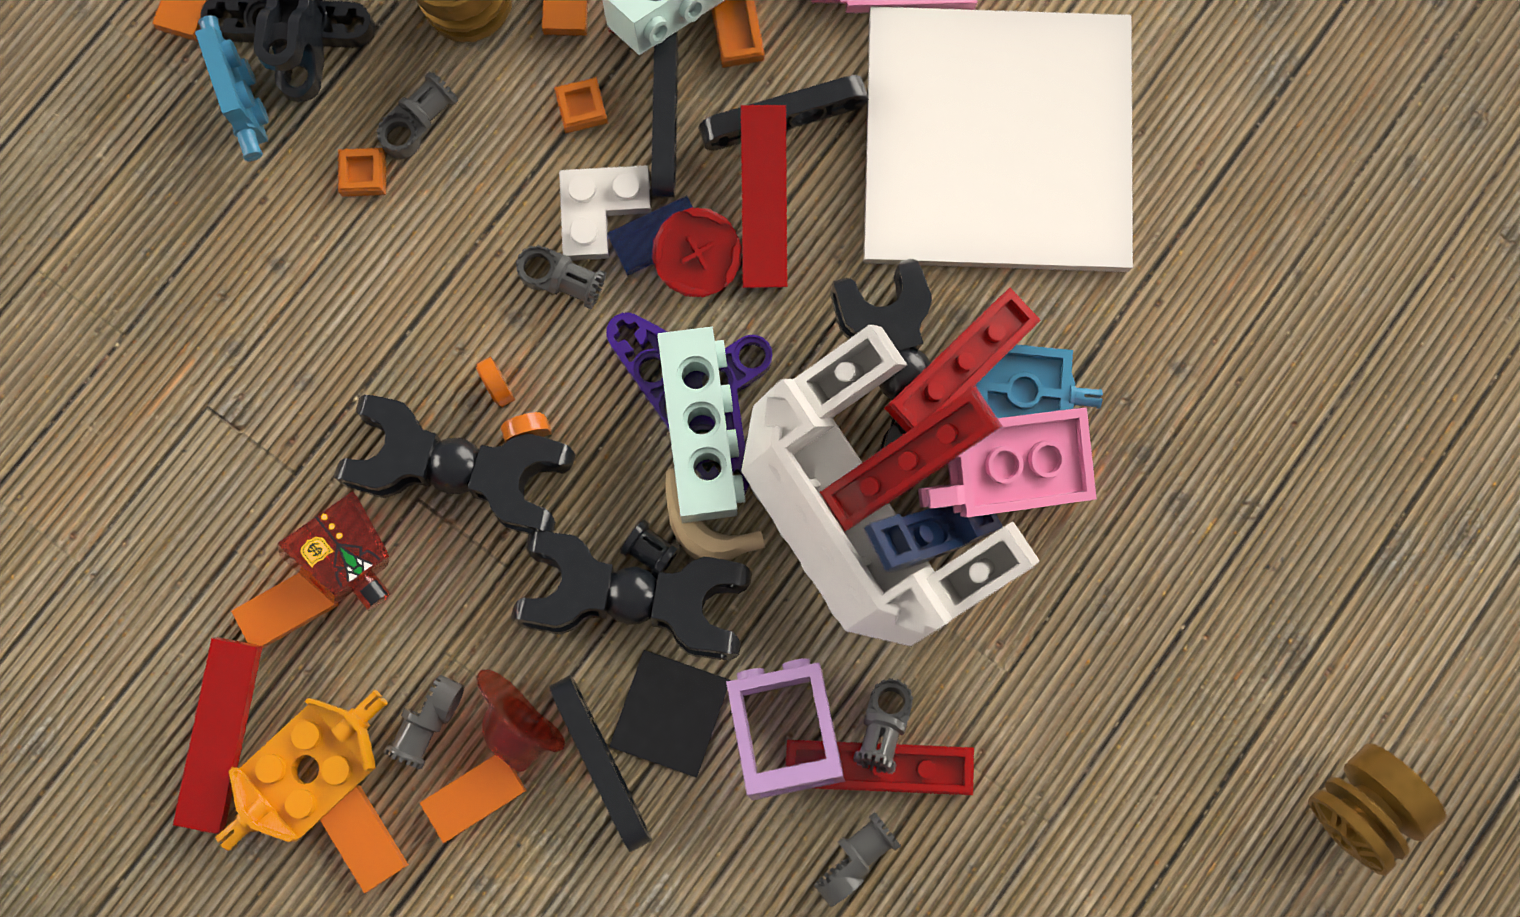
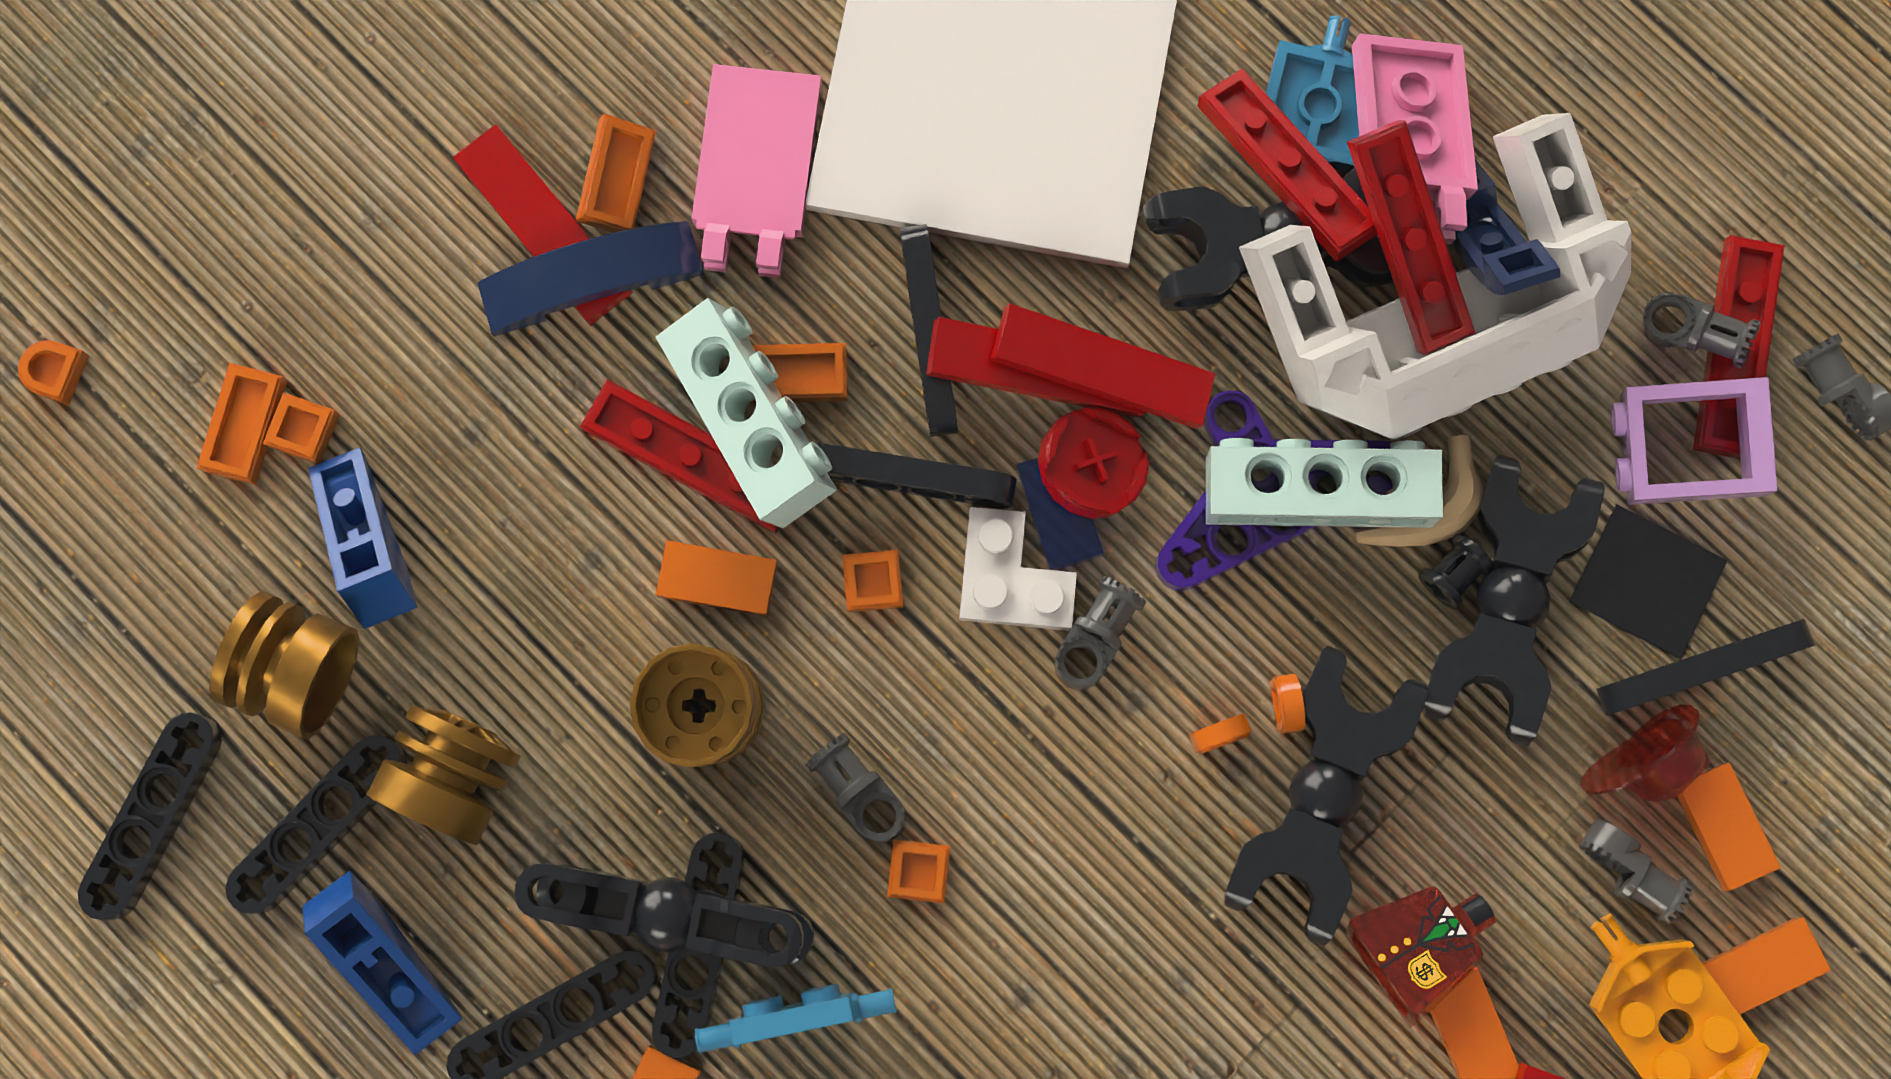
camera: 80 degrees left, 0 degrees up
(772, 243) = (1102, 366): none -> red tile

